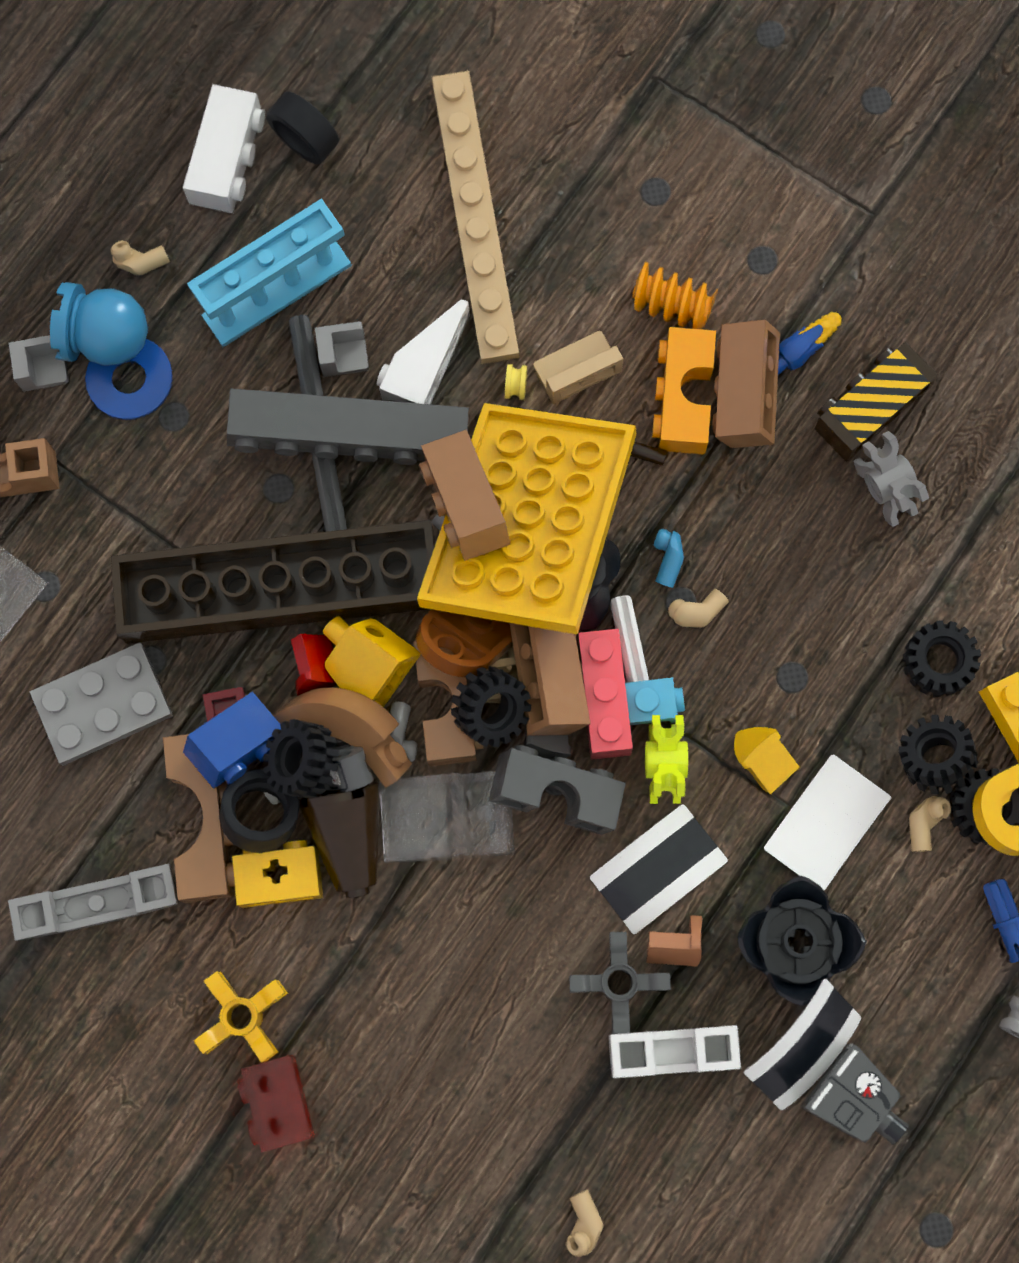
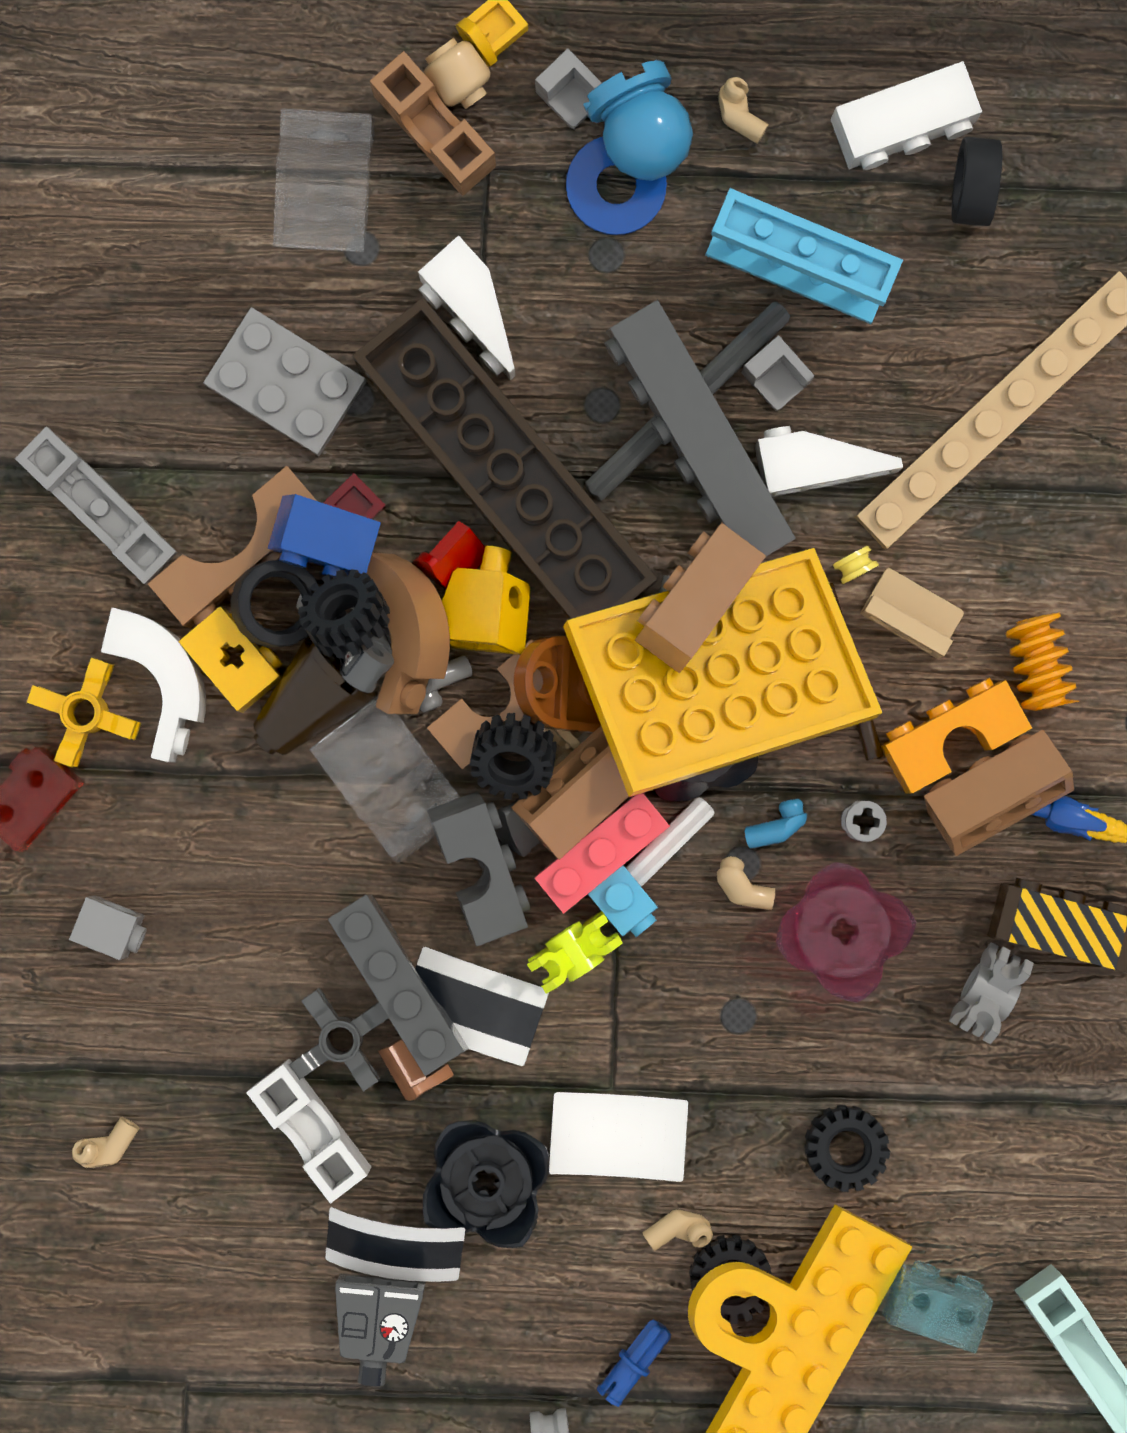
camera: 50 degrees right, 10 degrees up
(131, 527) = (465, 289): none -> white slope
(232, 927) = (174, 669): none -> white arch
(417, 1107) = (108, 928): none -> light grey brick
(605, 909) = (397, 985): none -> dark grey arch
(702, 482) = (873, 811): none -> light grey bush
(764, 756) = (641, 1038): yellow tile -> none
(786, 527) = (880, 931): none -> clear pink brick
(932, 735) = (761, 1180): black tyre -> none

